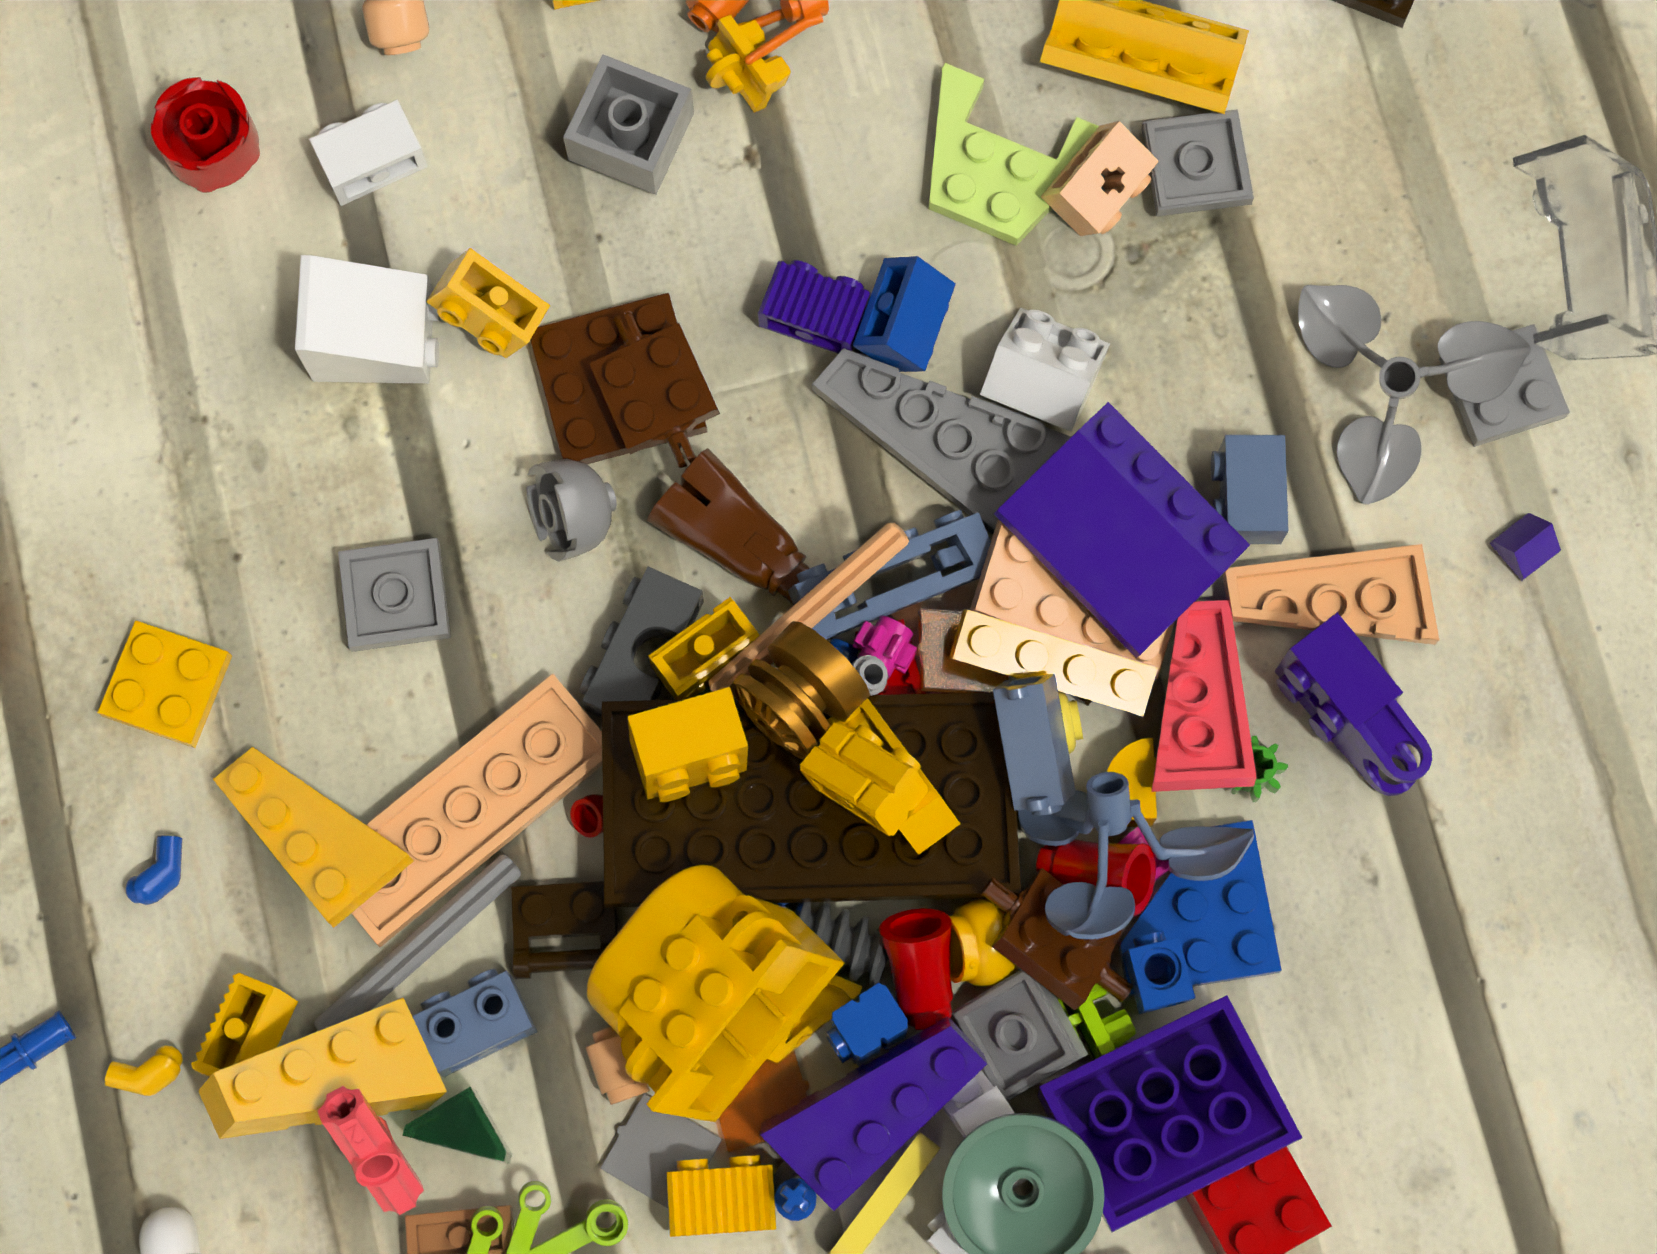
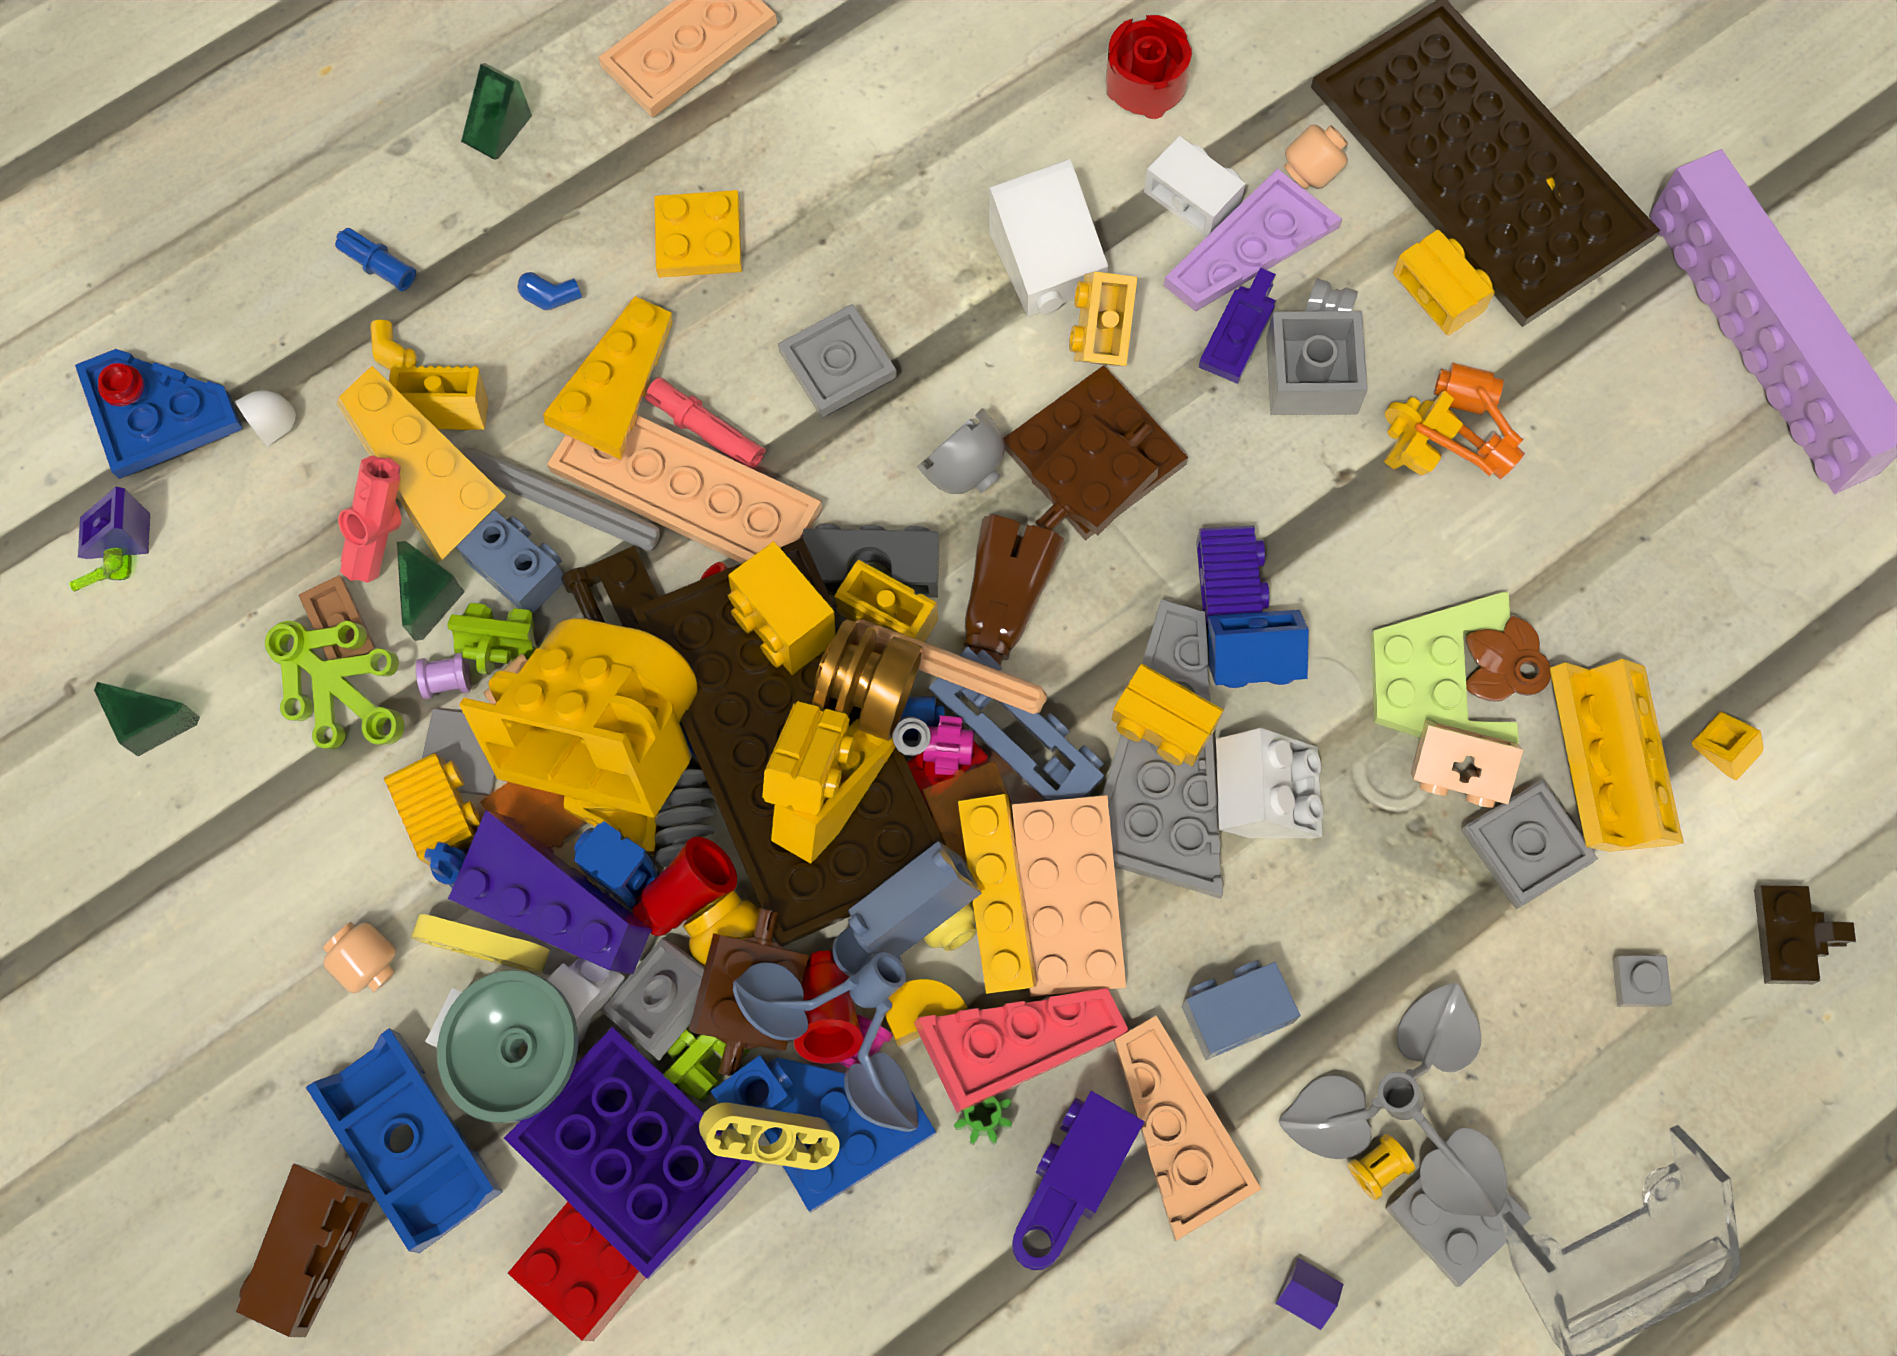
camera: 70 degrees right, 5 degrees down
(396, 765) = (692, 415): none -> coral pin
(454, 118) = (1258, 234): none -> lavender wing
(550, 179) = (1240, 329): none -> dark purple hinge
(556, 1075) = (490, 639): none -> lime hips
(566, 84) = (1325, 299): none -> light grey wheel
(571, 1141) = (443, 675): none -> lavender bush
(942, 429) = (1165, 716): none -> yellow brick
(1008, 98) = (1500, 661): none -> dark orange plate
(1122, 529) = (1141, 902): dark purple slope -> none
(1194, 978) = (754, 1121): none -> light yellow beam
(1360, 129) = (1642, 981): none -> light grey plate
(1430, 418) = (1381, 1167): none -> yellow bush

